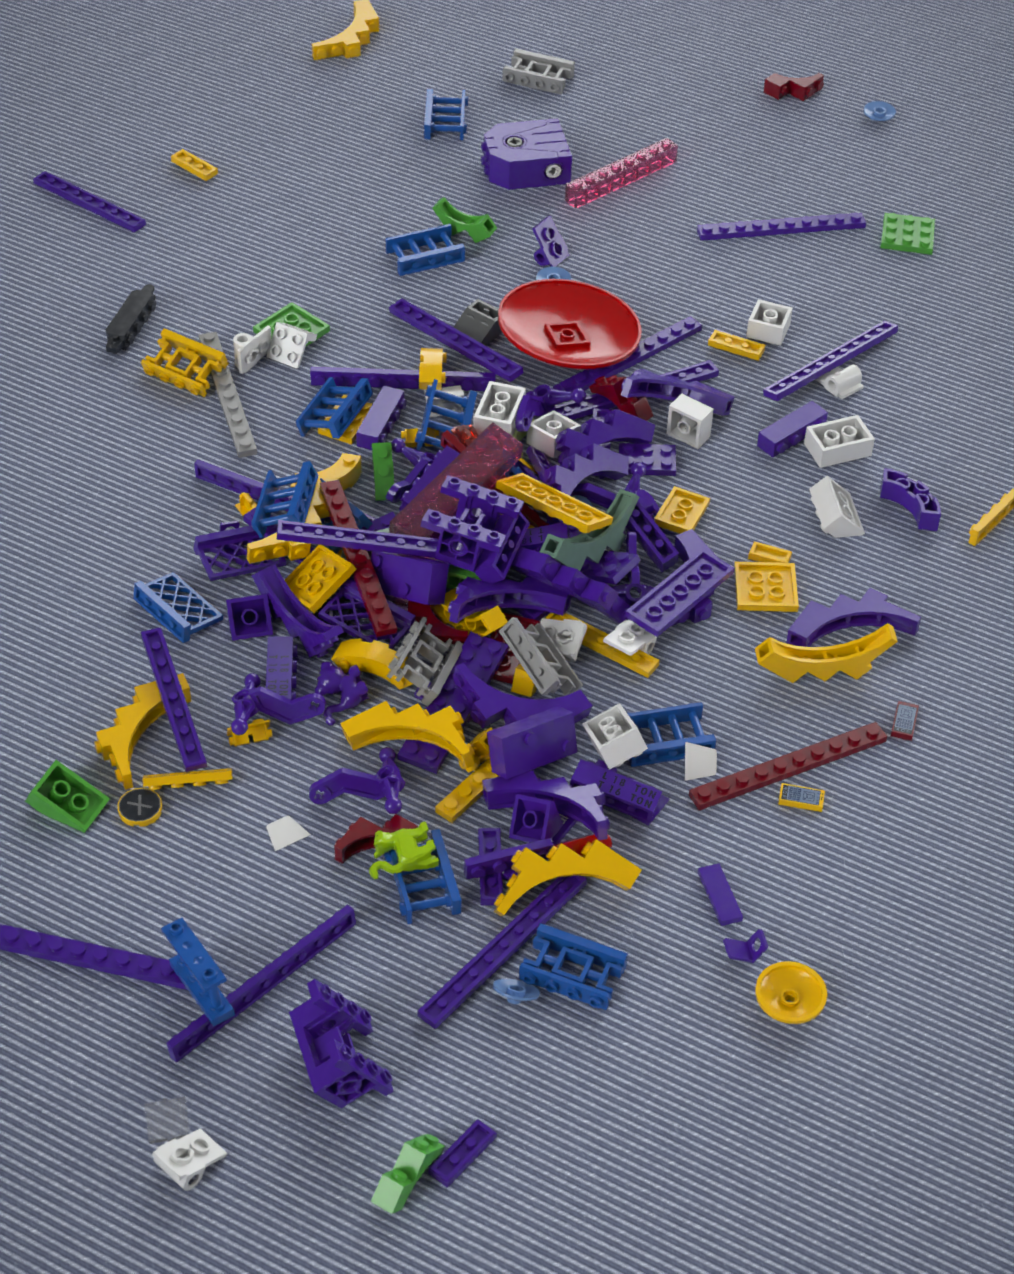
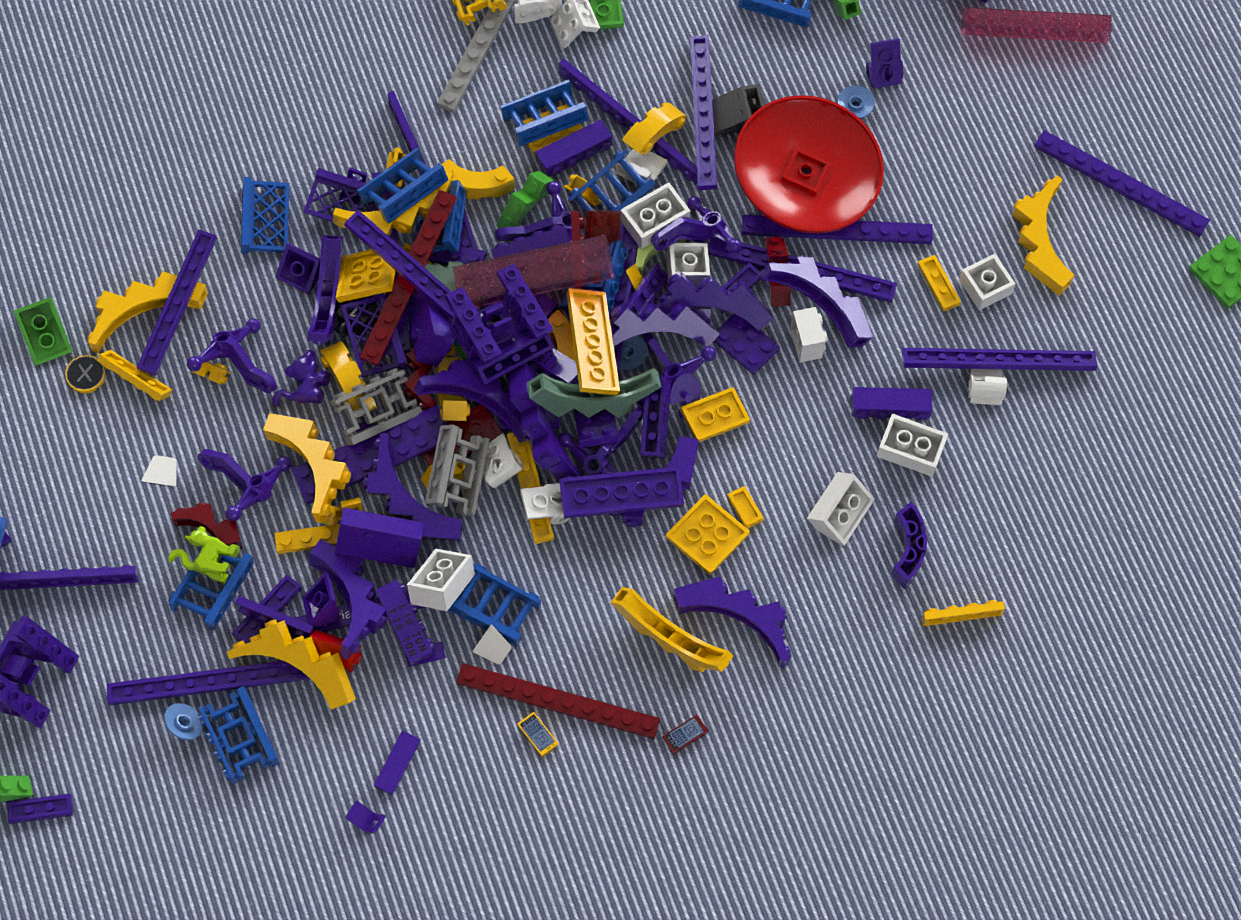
camera: 40 degrees right, 20 degrees up
(281, 666) = (277, 333): dark purple brick -> none
(770, 284) = (1041, 259): none -> yellow arch
(793, 983) = (350, 866): yellow dish -> none

